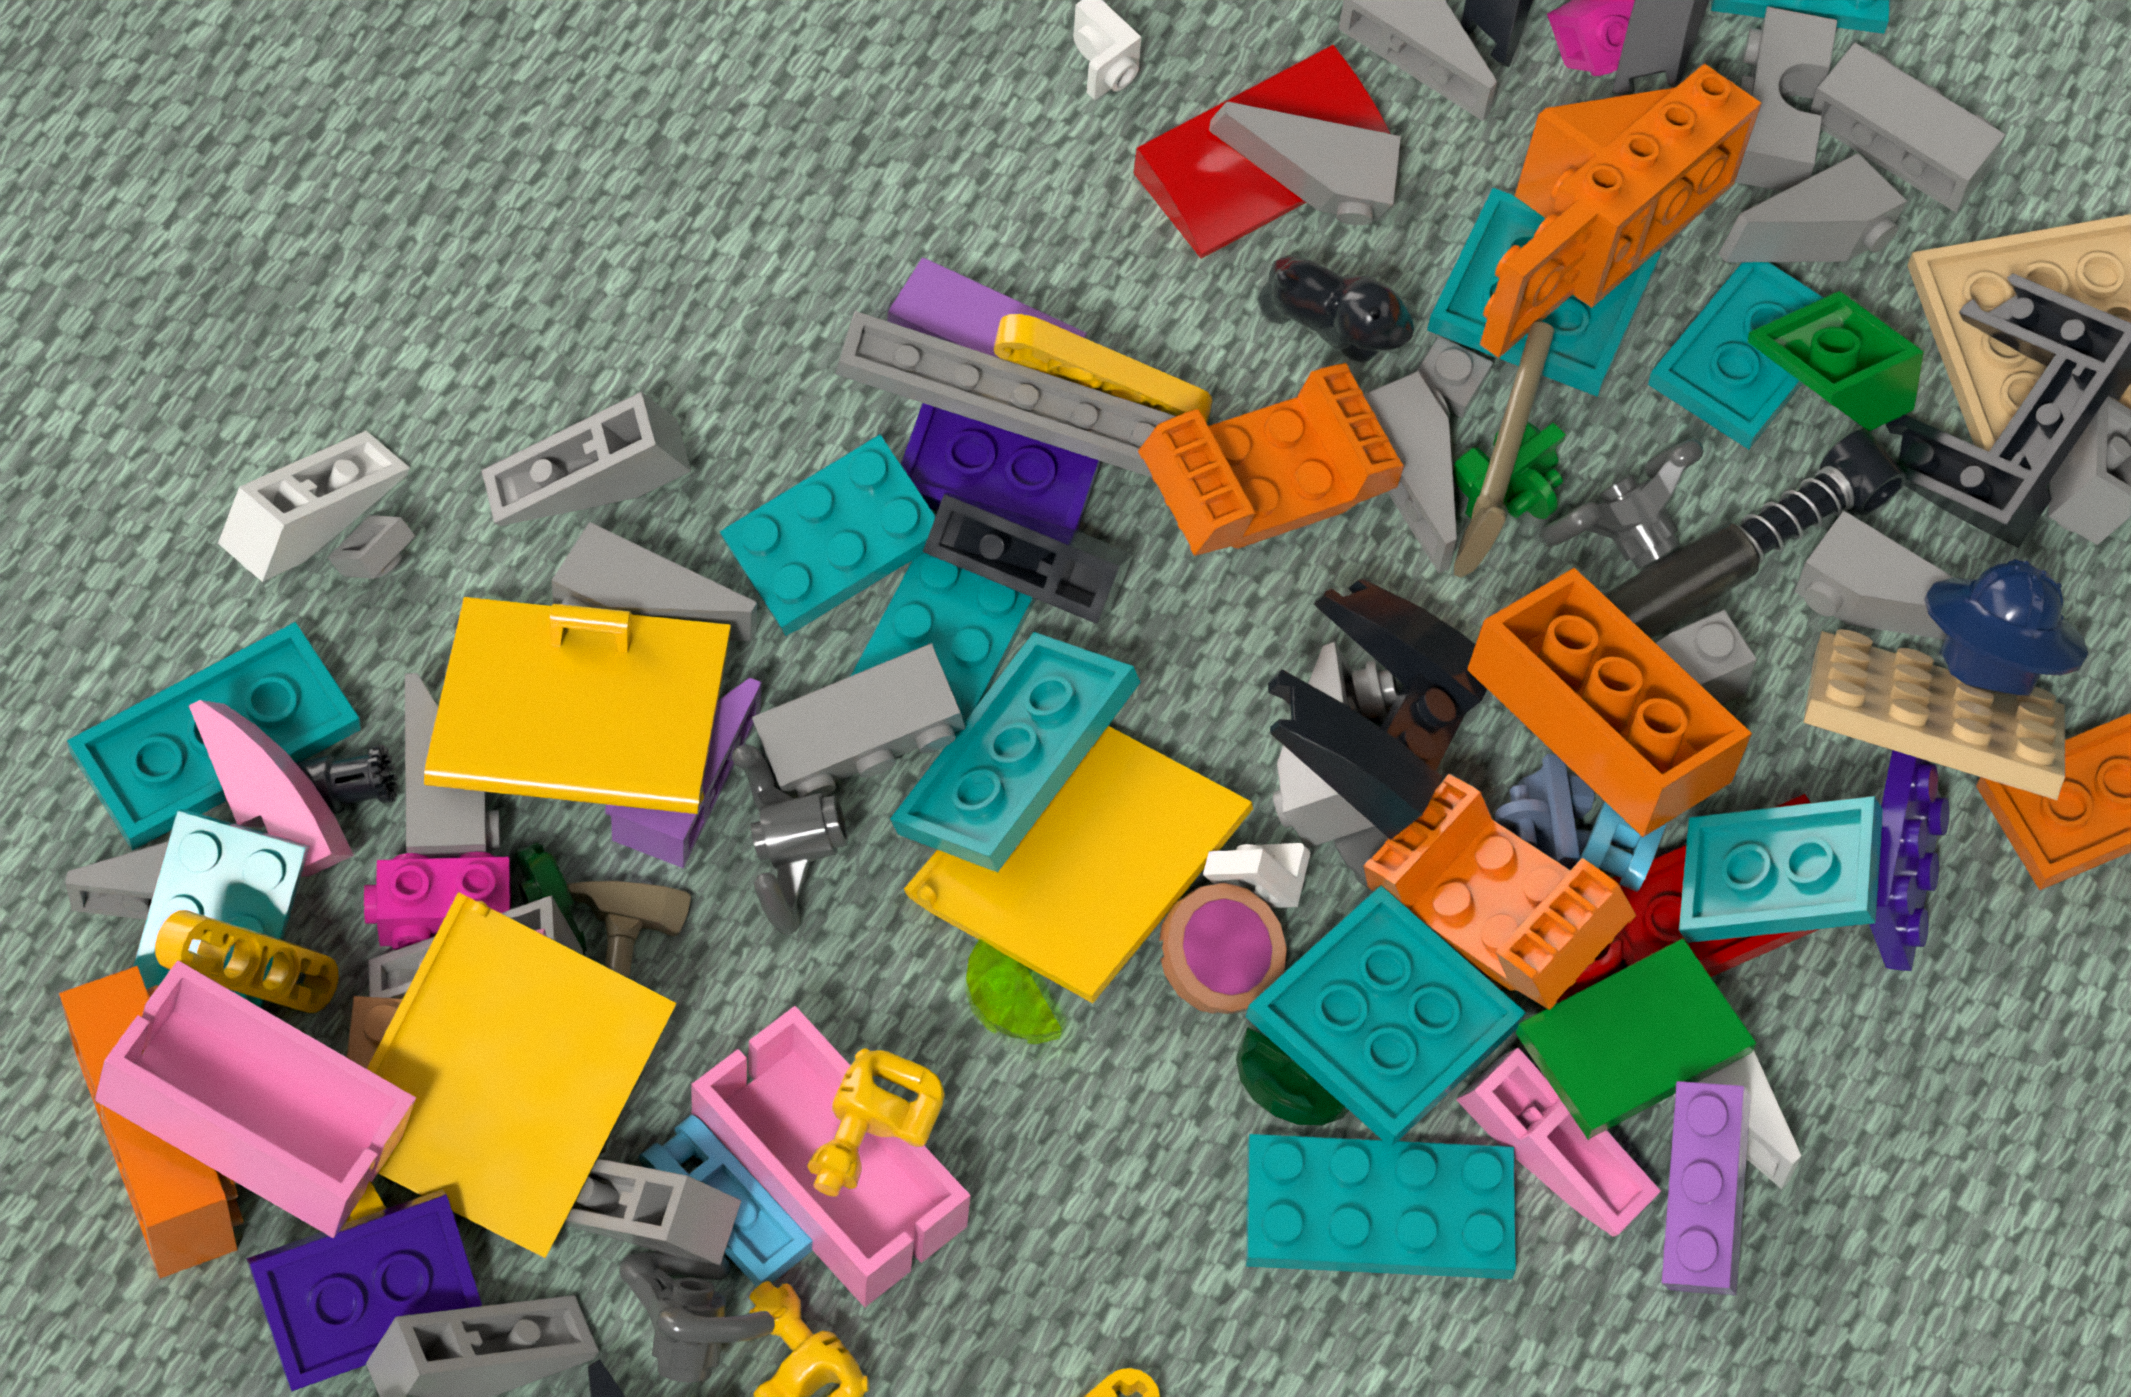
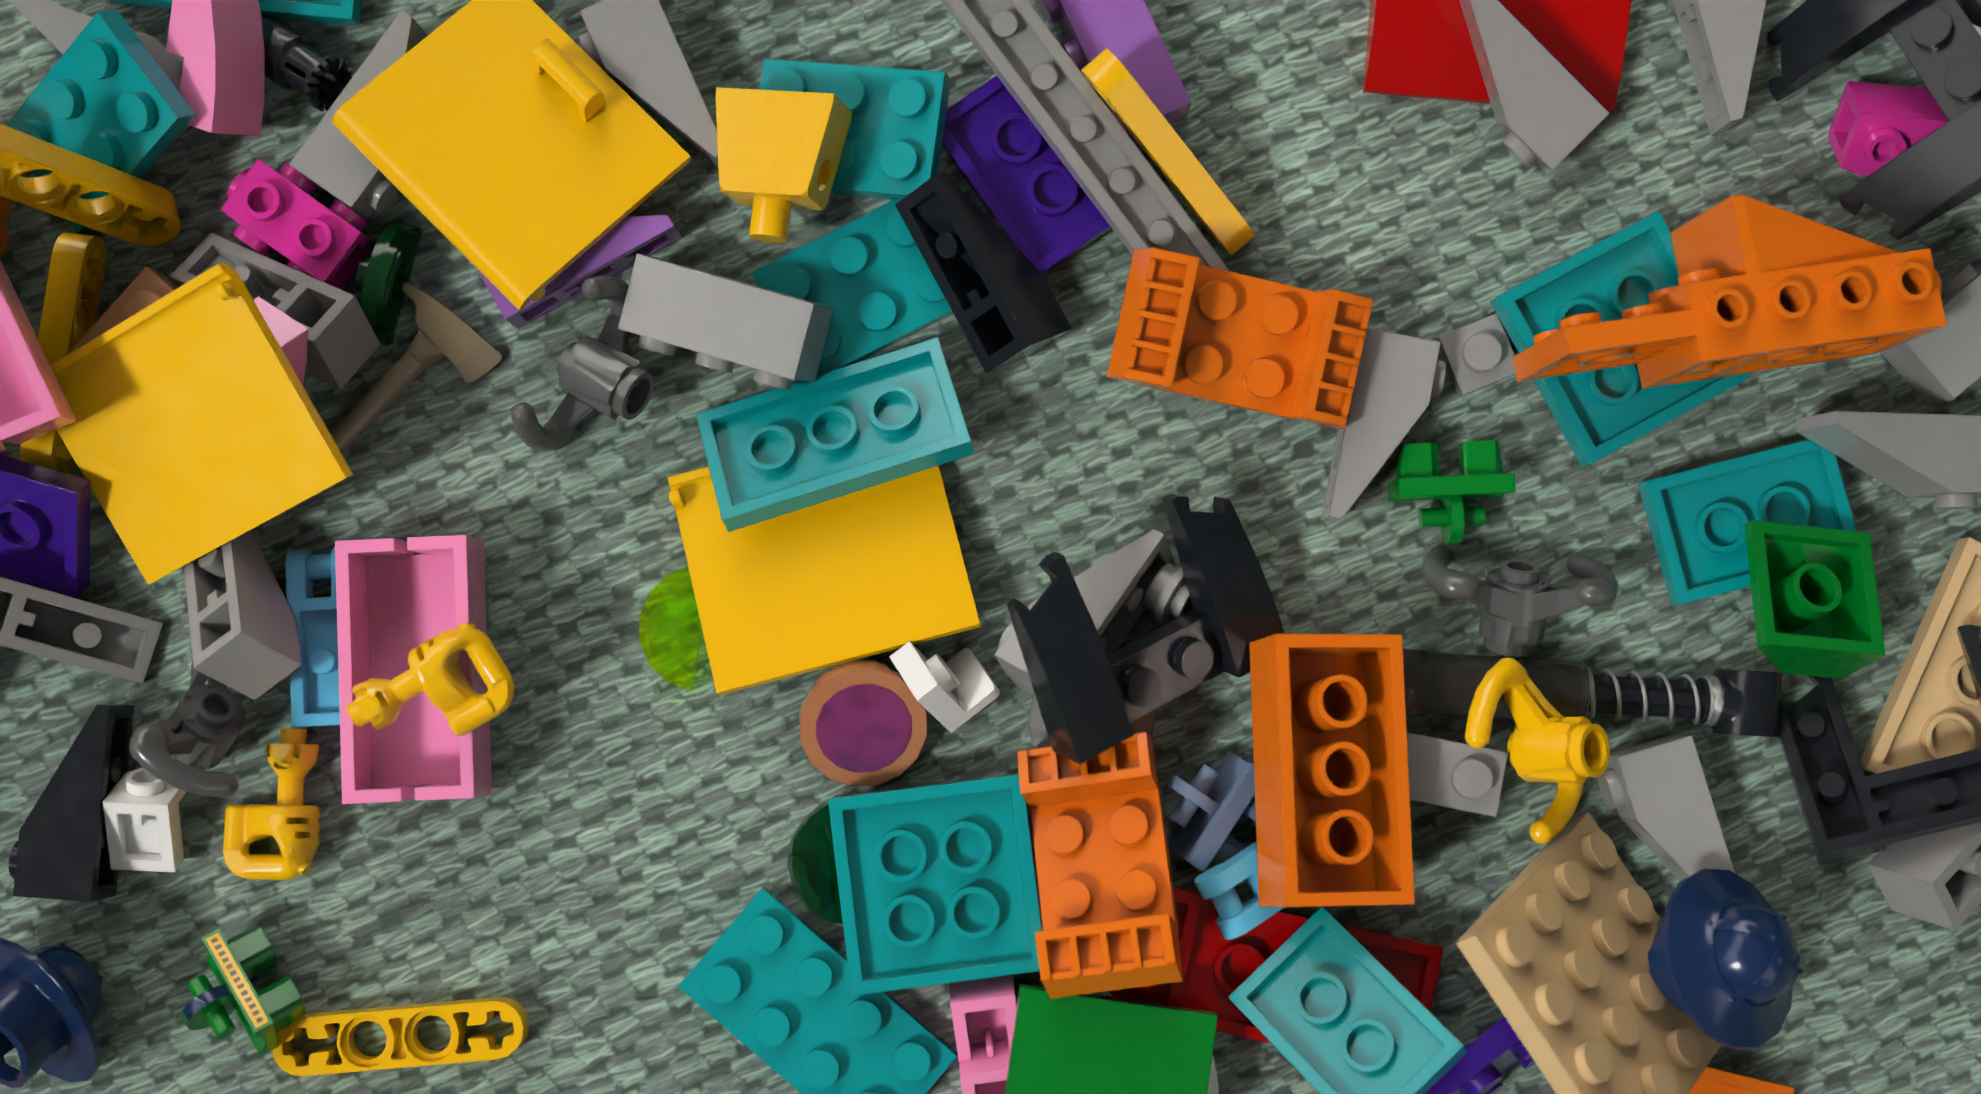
camera: 45 degrees right, 25 degrees up
(801, 570) = (778, 153): none -> yellow torso
(1345, 310) = (1427, 235): black animal -> none
(1488, 510) = (1366, 531): dark tan piece -> none
(1746, 583) = (1542, 744): none -> yellow piece

